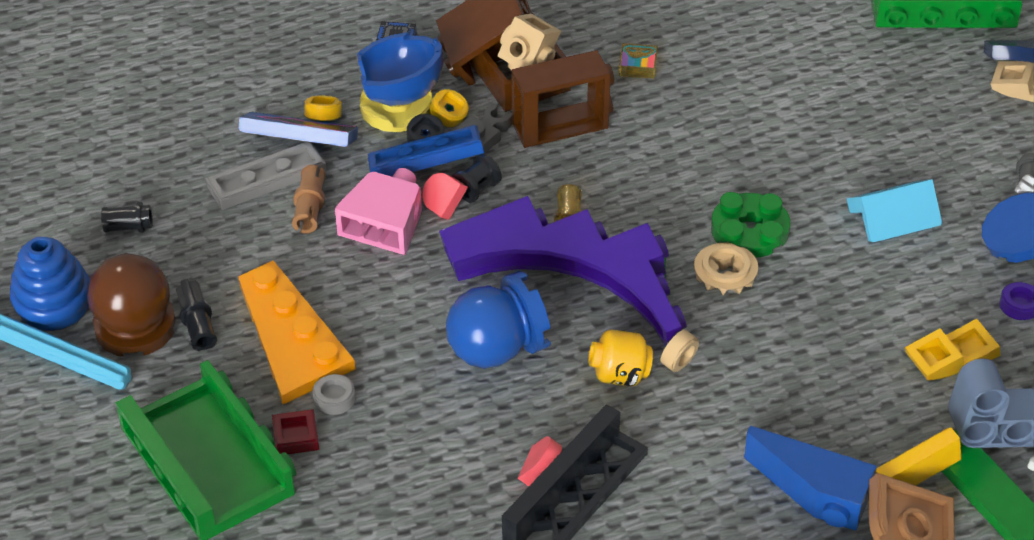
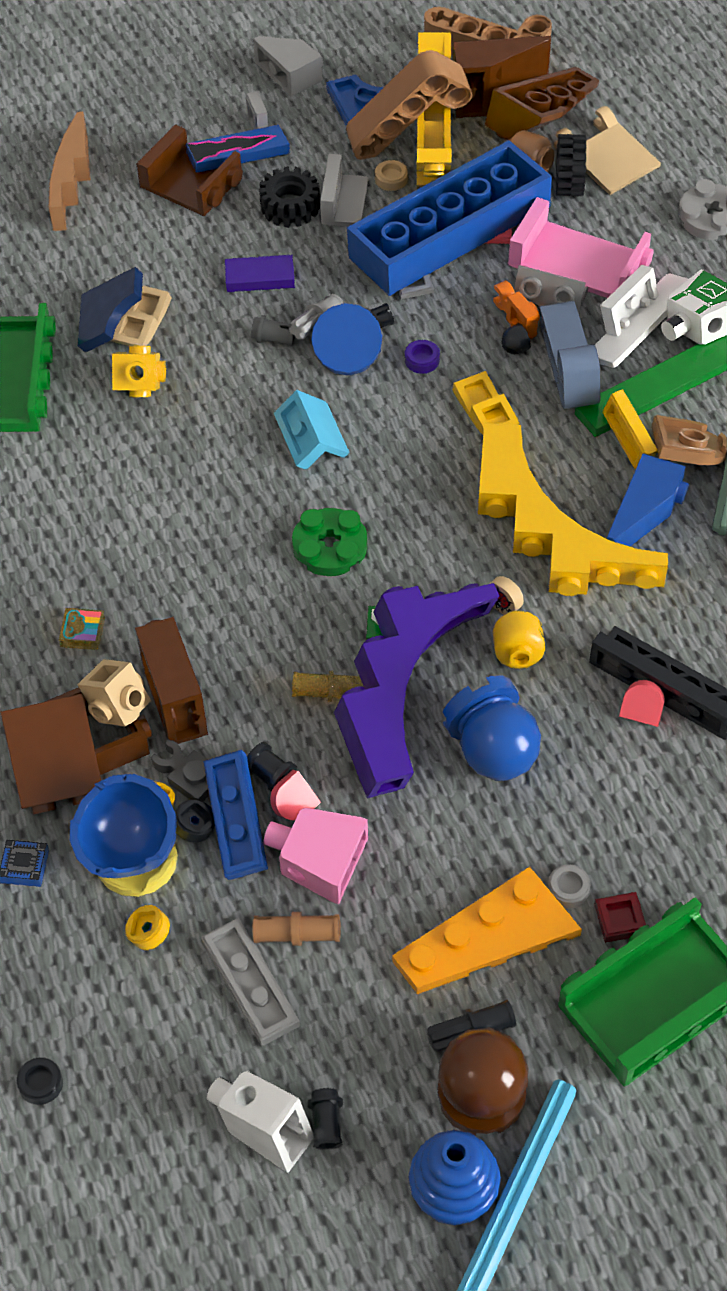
camera: 90 degrees left, 10 degrees up
(125, 167) = (263, 1117): none -> white torso
(197, 58) = (39, 1081): none -> black tile
(298, 129) = (183, 949): tile -> none
(724, 256) = (389, 548): tan gear -> none
(821, 361) = (543, 529): none -> yellow arch
(947, 72) = (126, 376): none -> yellow brick

